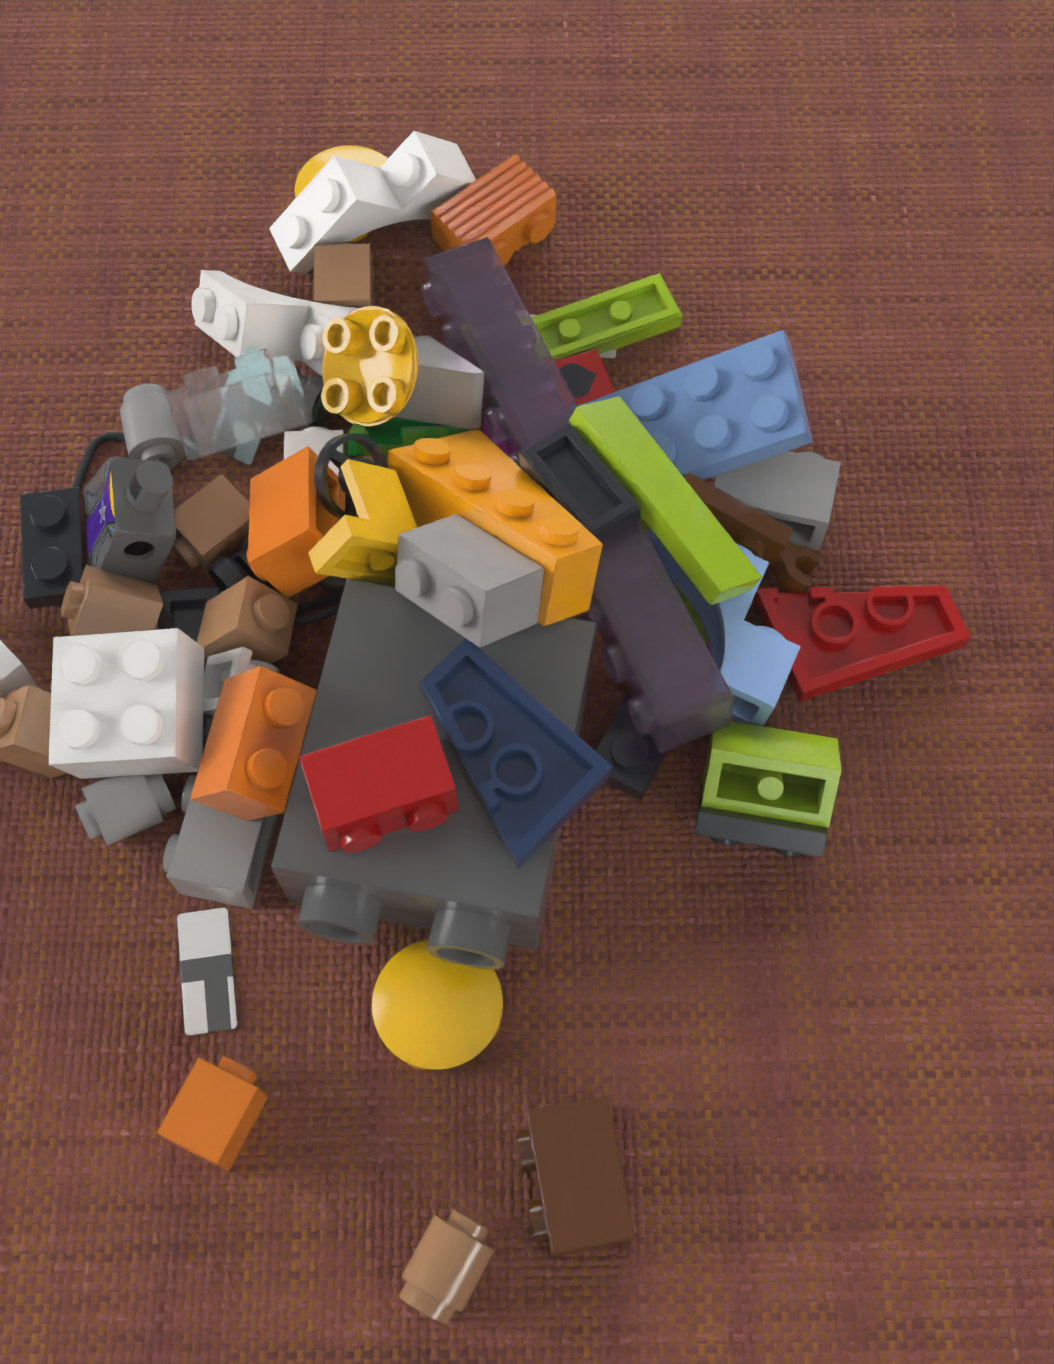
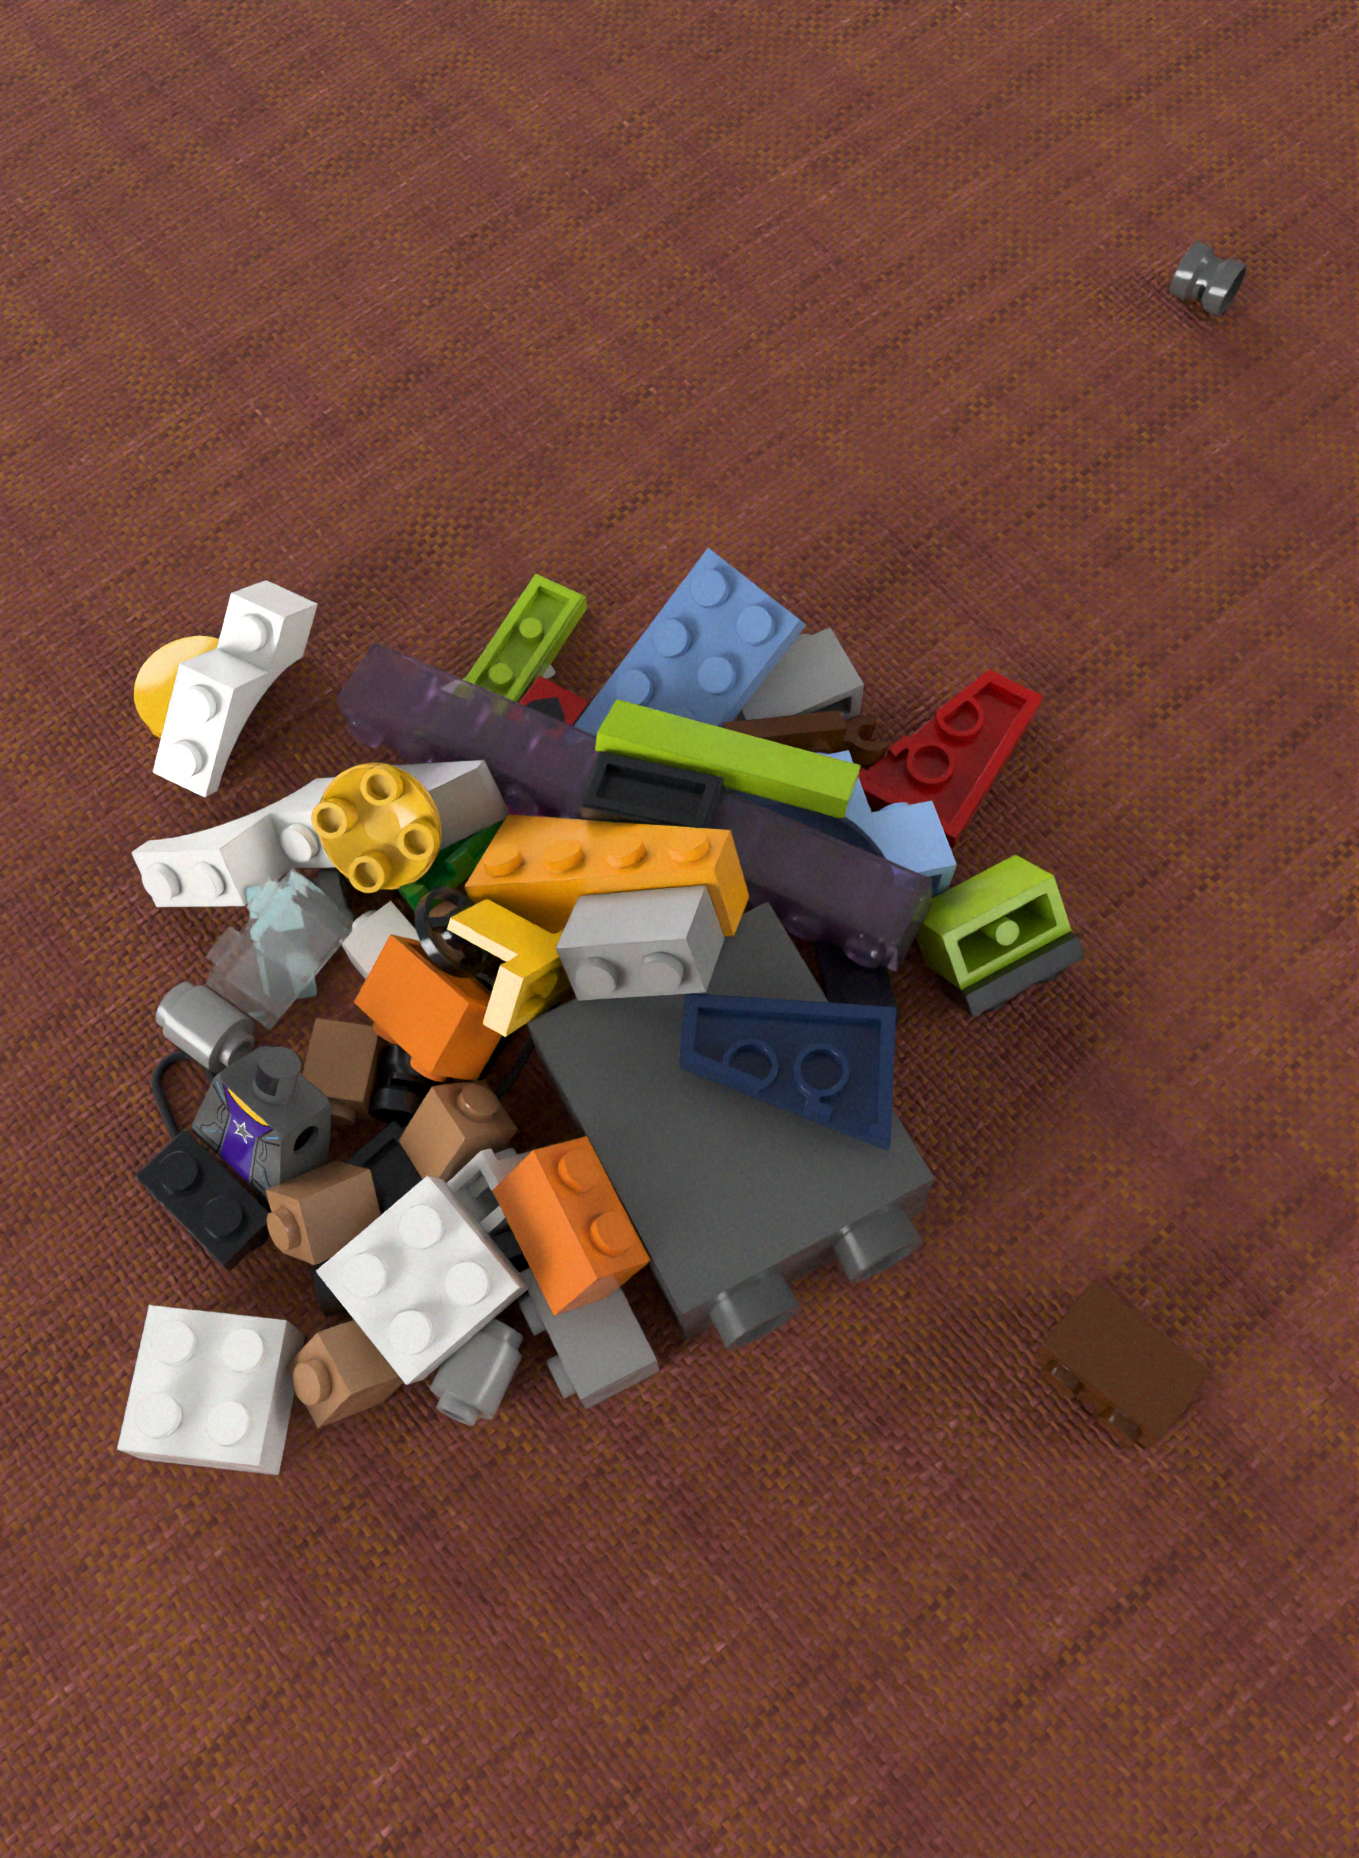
camera: 35 degrees left, 0 degrees up
(206, 971) = (668, 1454): white sticker -> none
(214, 1111) = (789, 1560): orange brick -> none
(344, 275) = (266, 767): medium nougat brick -> none
(380, 785) = (722, 1171): red brick -> none
(435, 1009) = (886, 1328): yellow dish -> none
(446, 1266) = (1081, 1523): medium nougat brick -> none
(504, 205) = (349, 613): orange brick -> none

